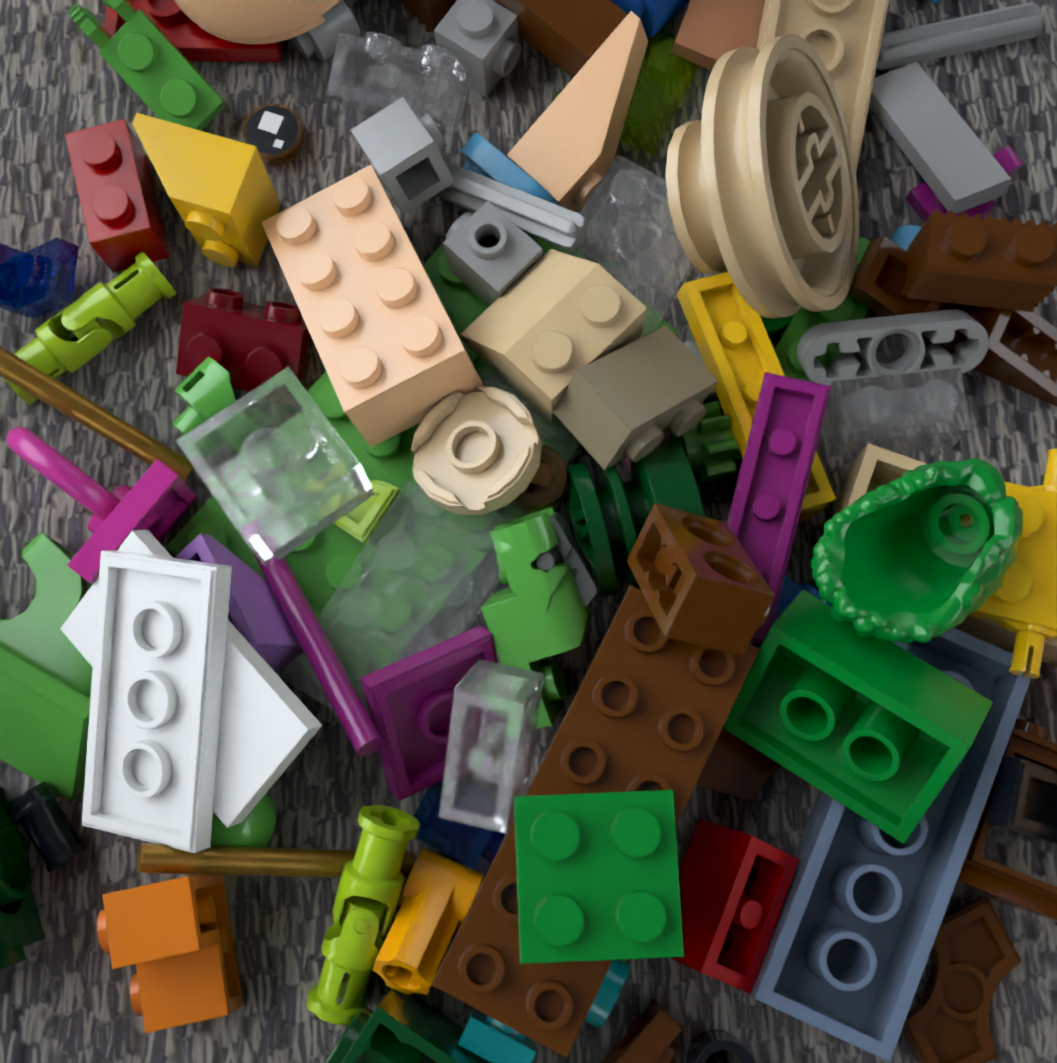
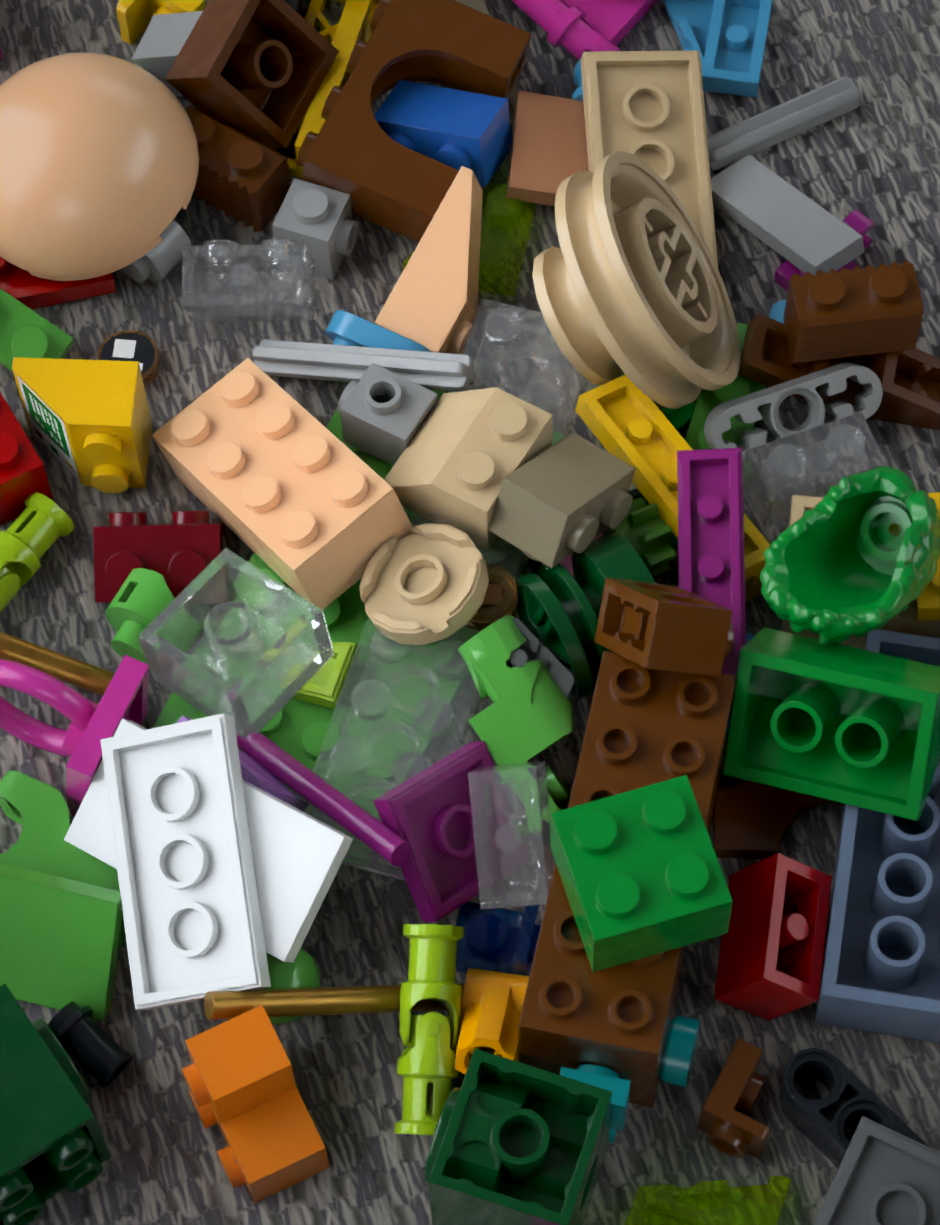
camera: 15 degrees left, 15 degrees down
(405, 154) = (277, 340): light grey brick -> none

